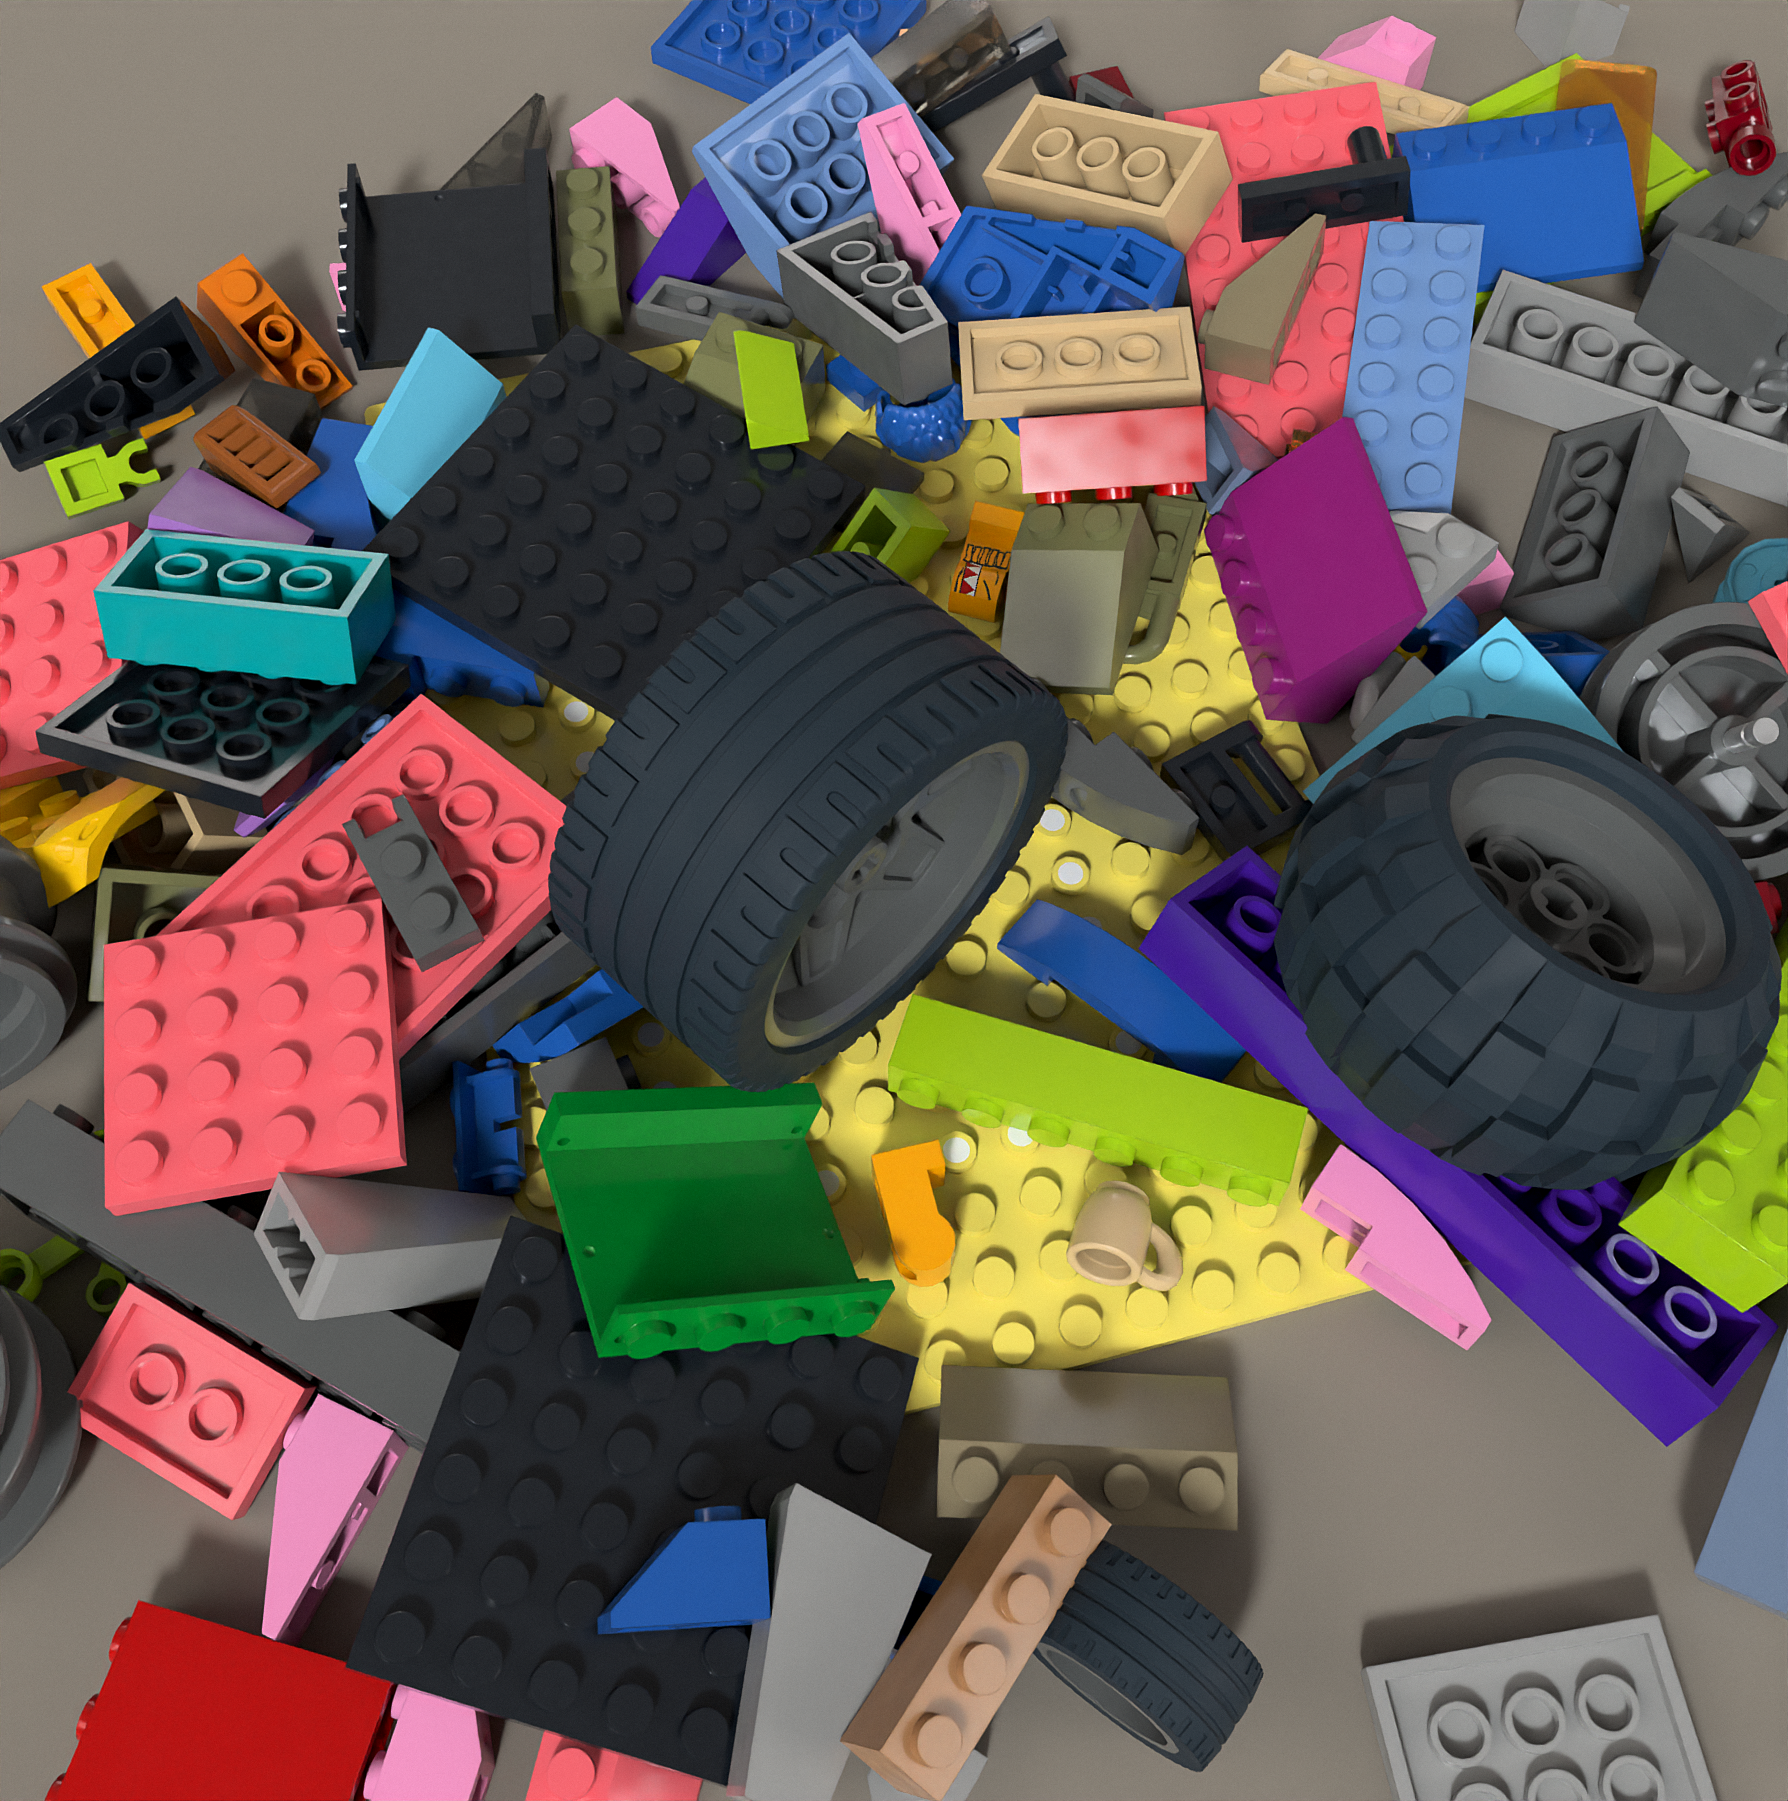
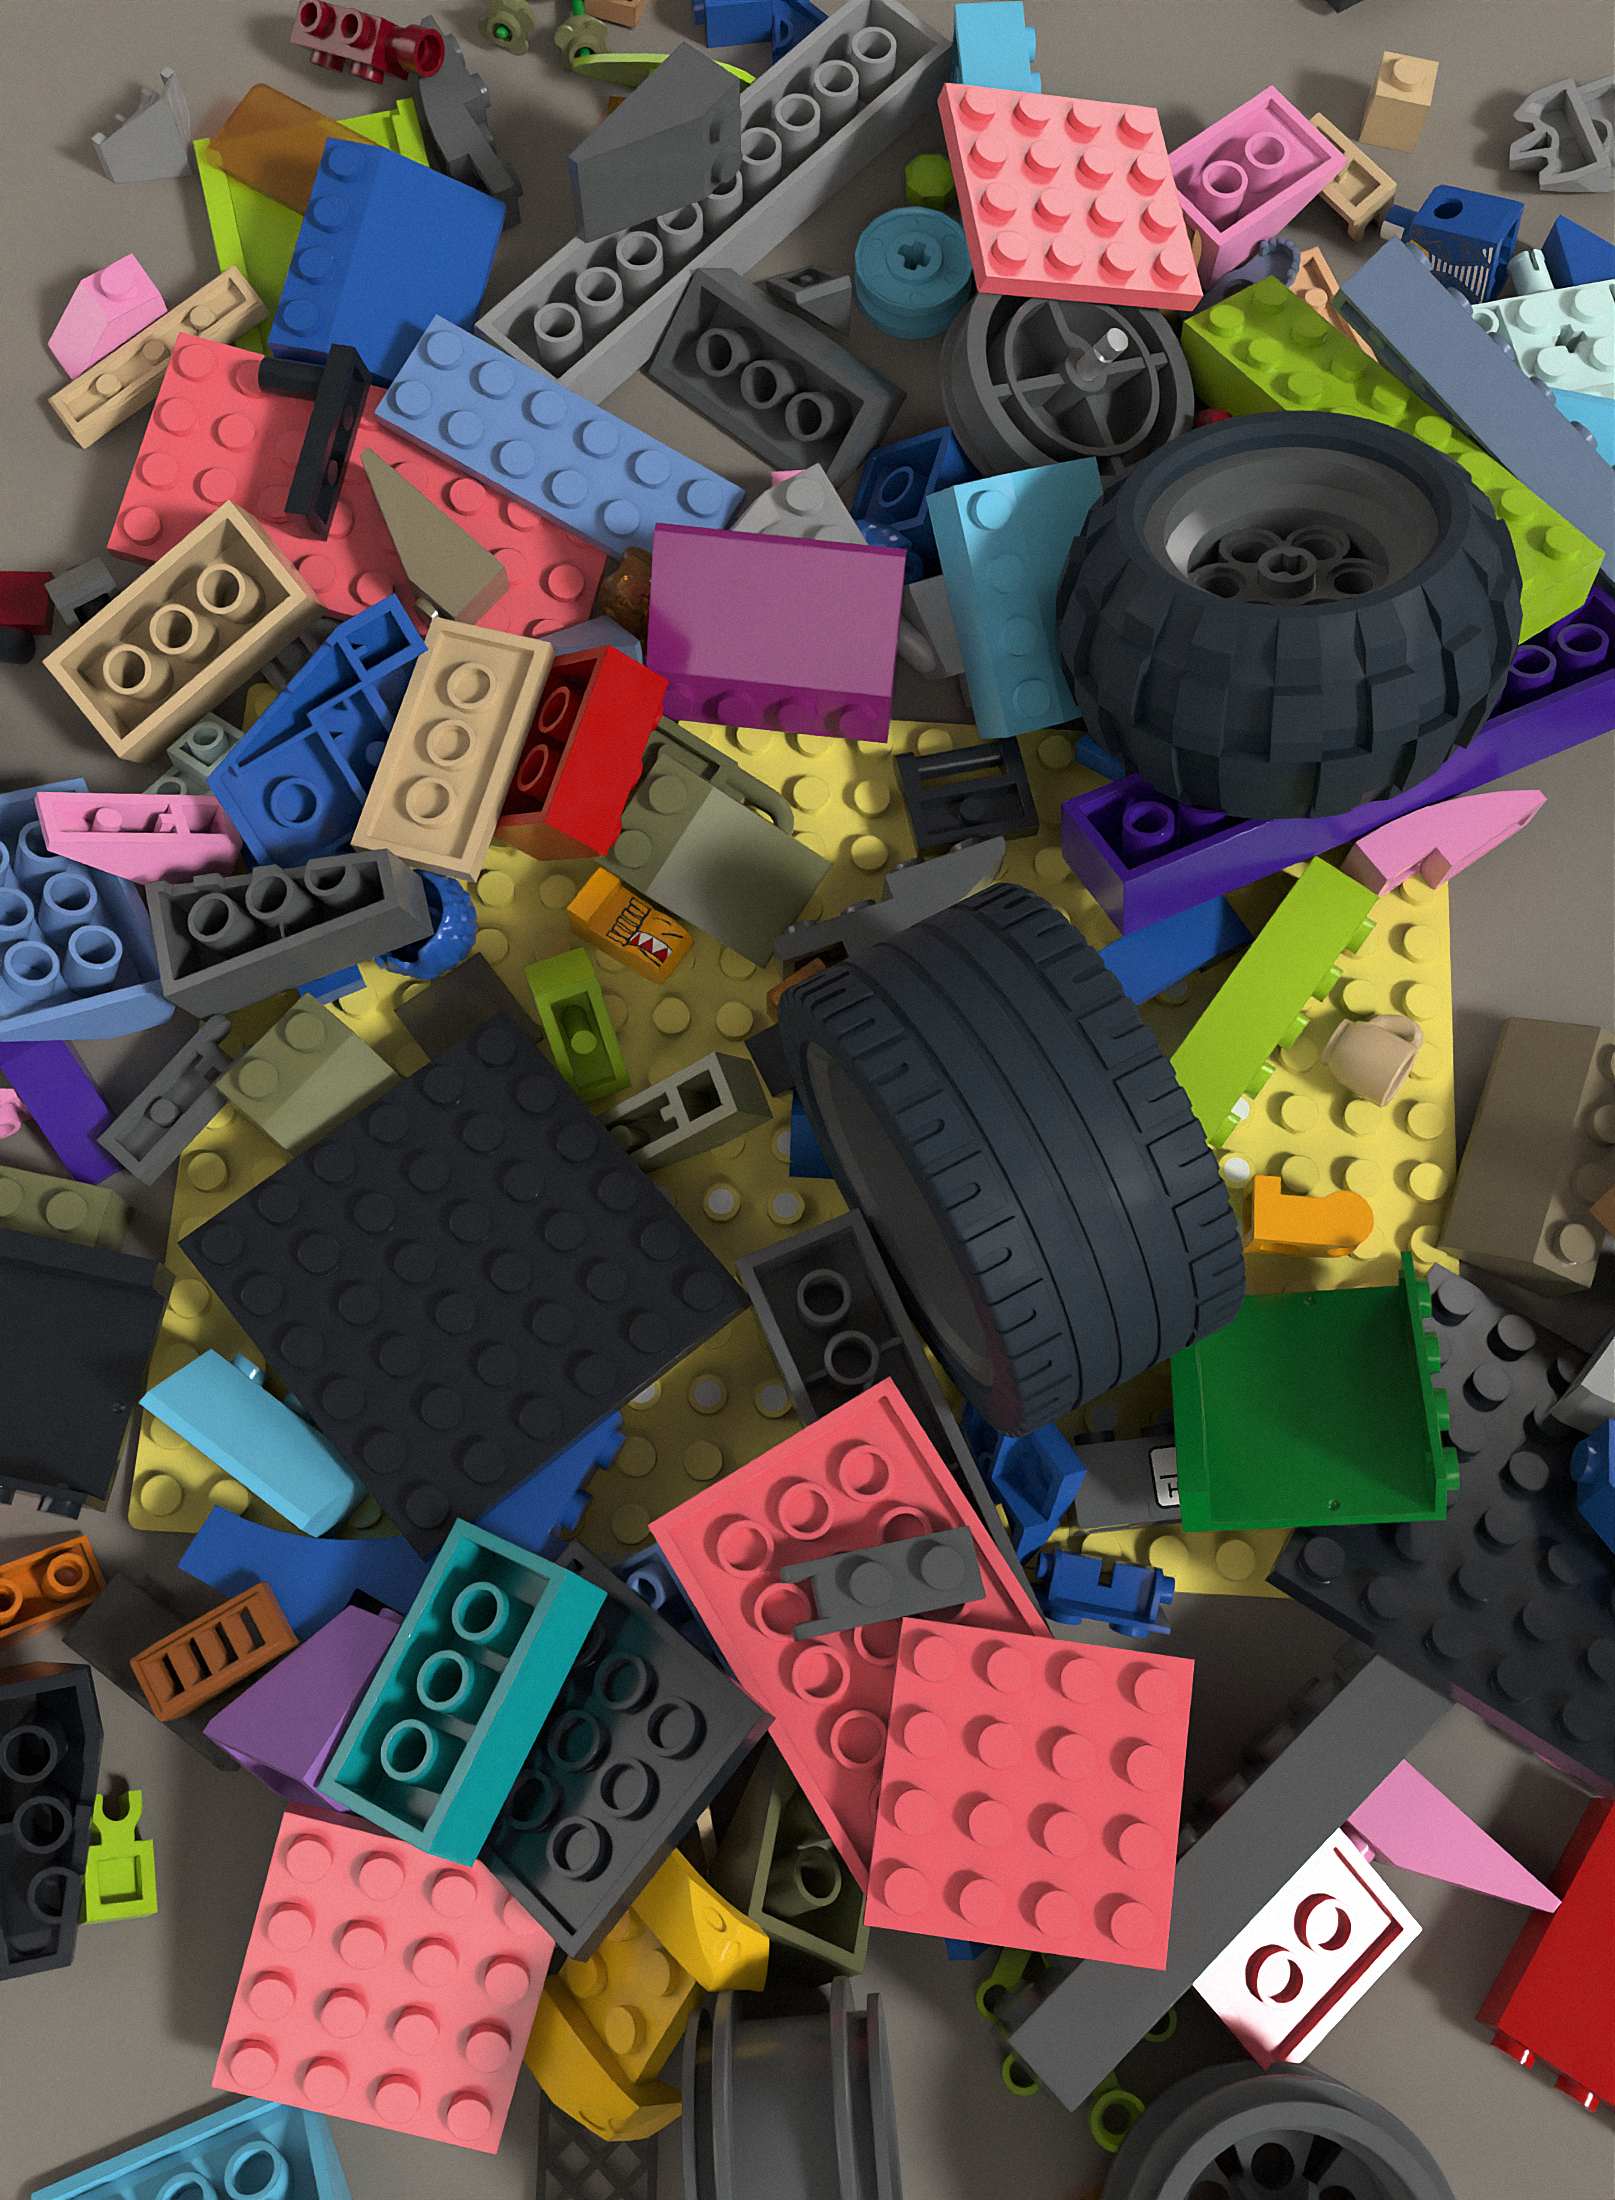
camera: 75 degrees left, 10 degrees up
(377, 1245) = (1252, 1718): light grey slope -> none
(770, 390) = (366, 1061): lime slope -> none

